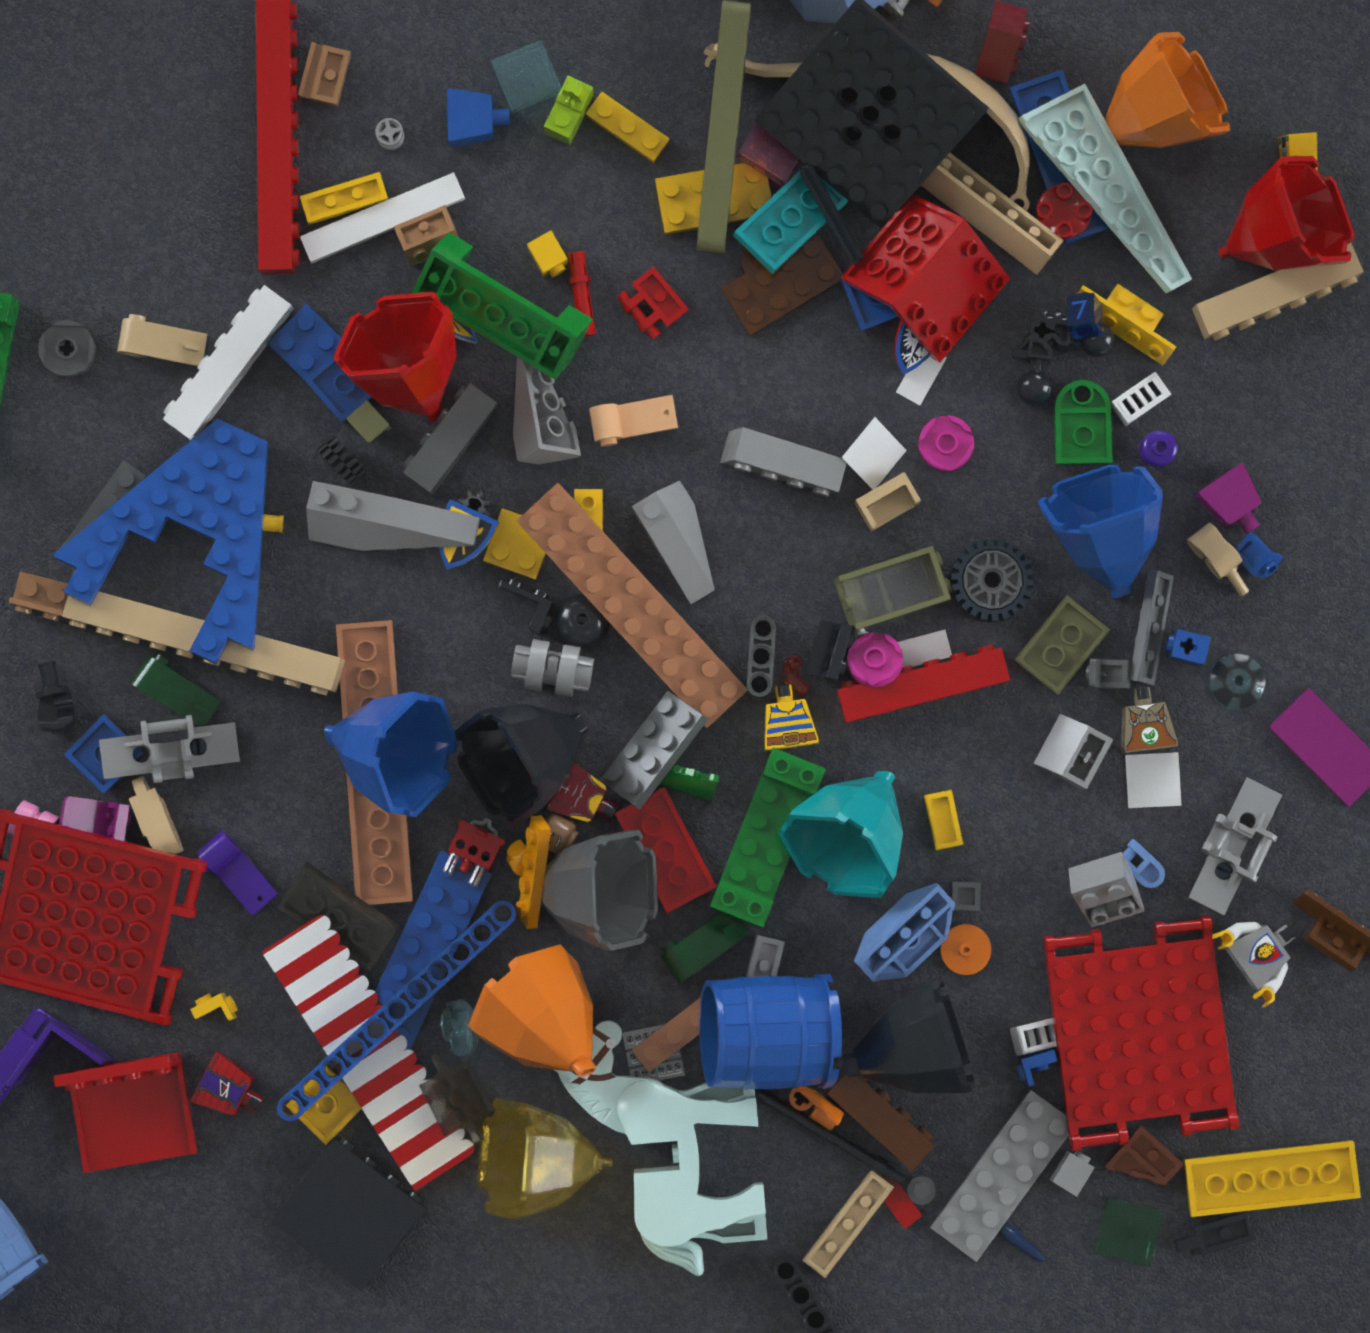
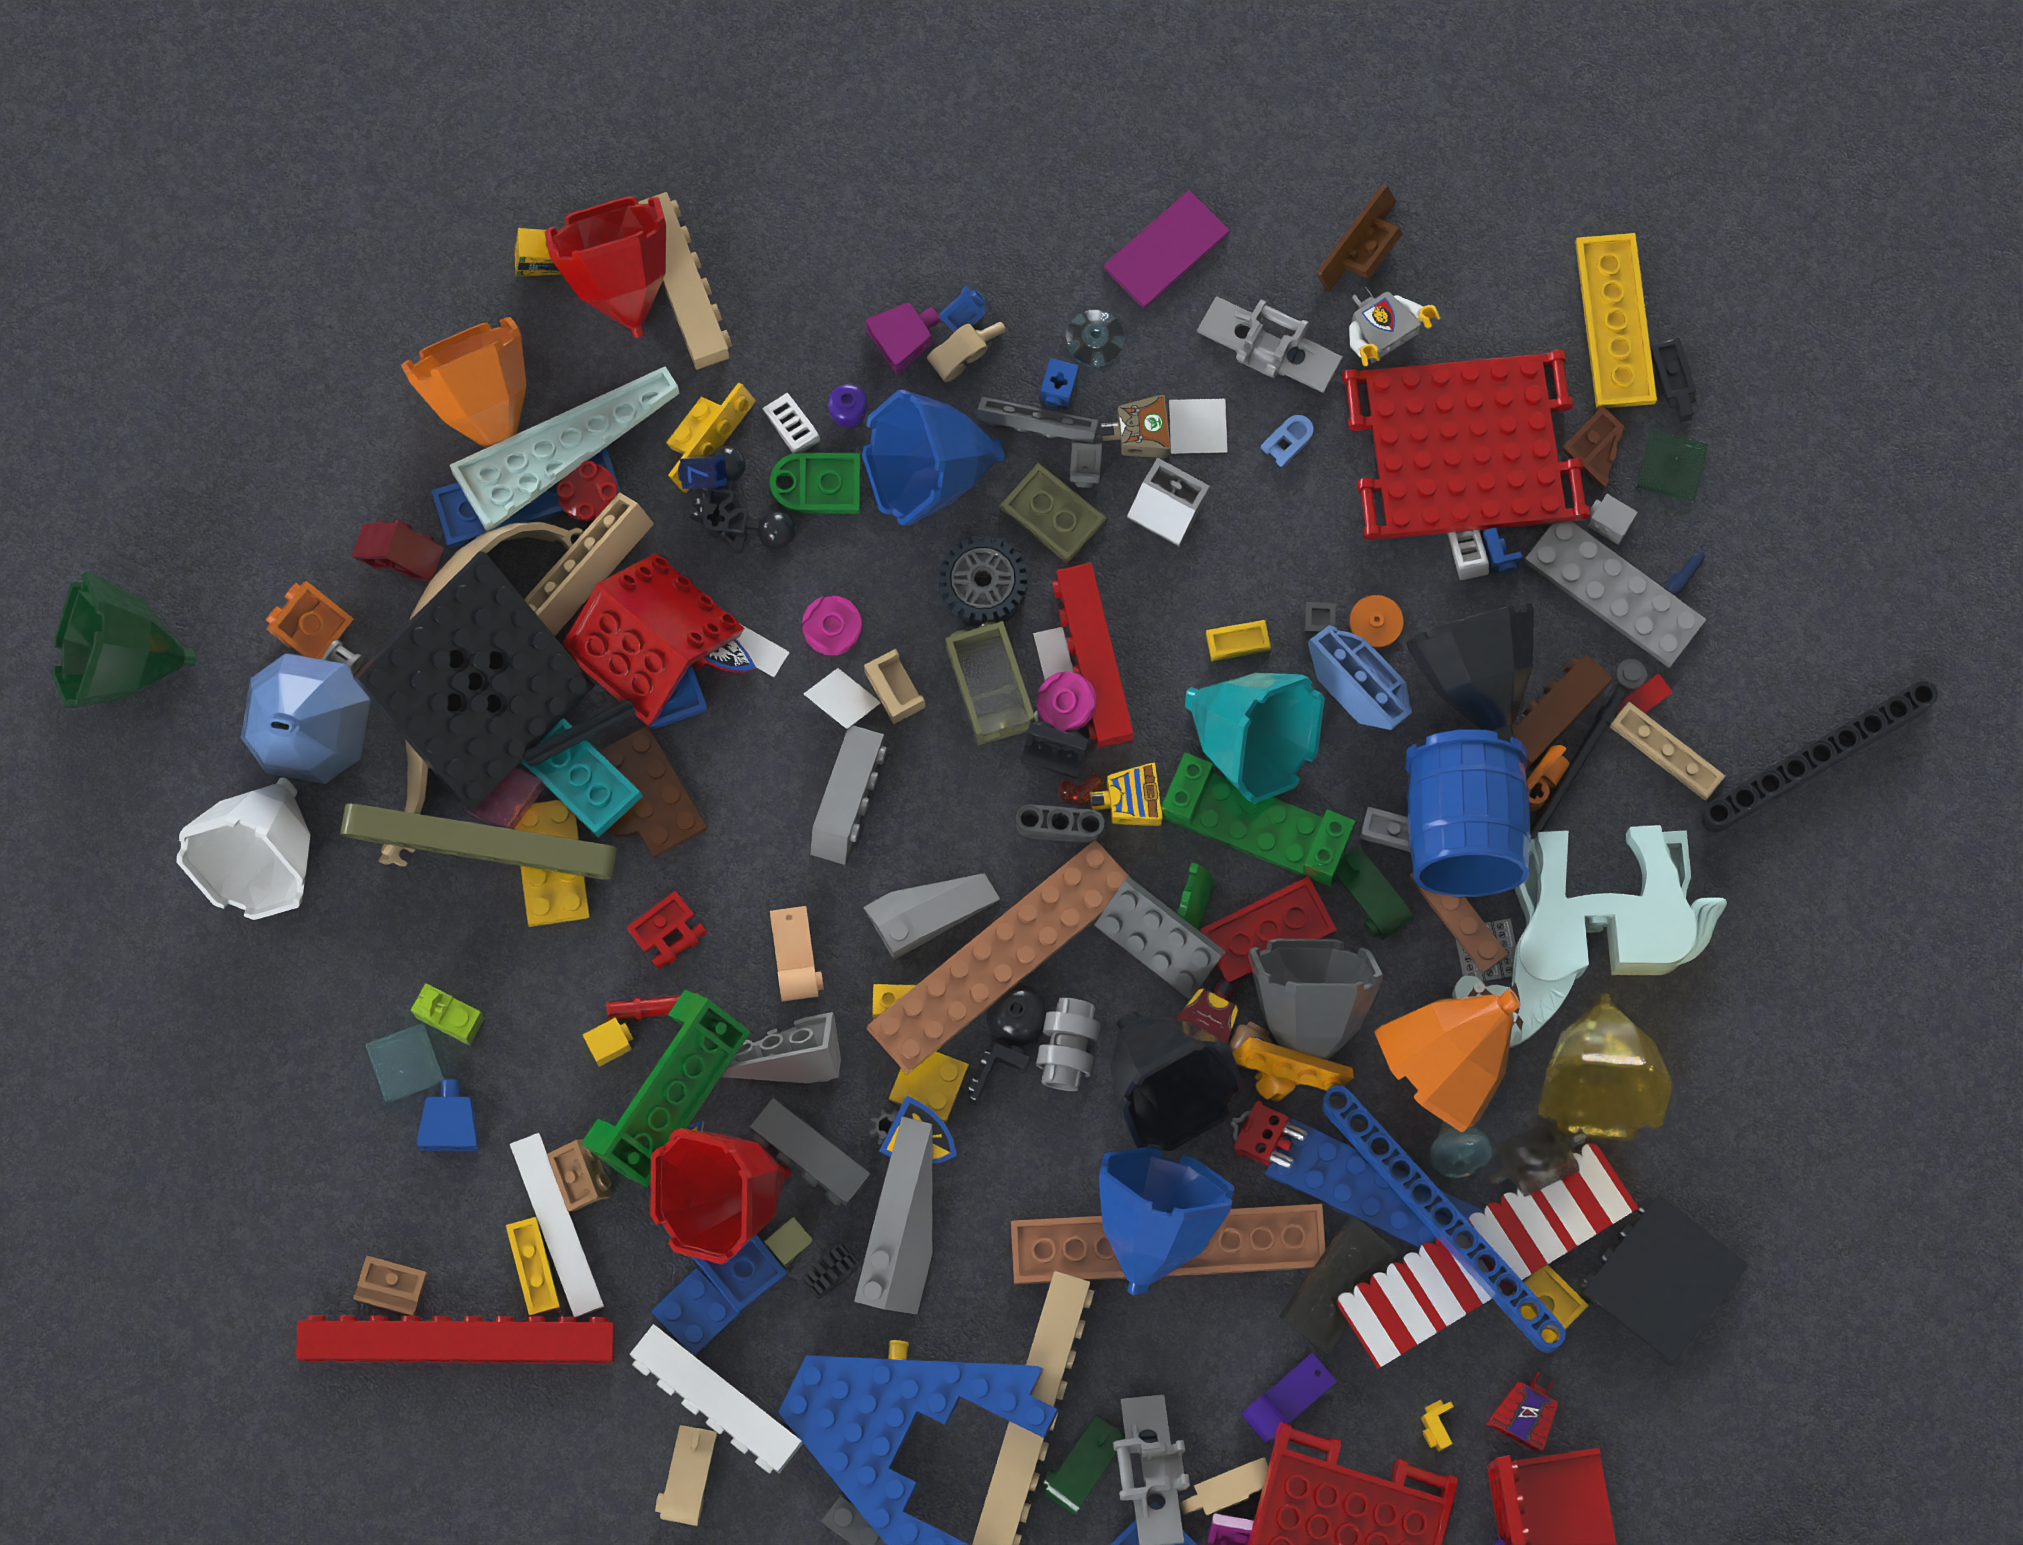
camera: 85 degrees left, 10 degrees down
(389, 127) = (460, 1208): light grey wheel -> none
(627, 127) = (468, 953): yellow plate -> none
(1105, 889) = (1315, 473): light grey slope -> none

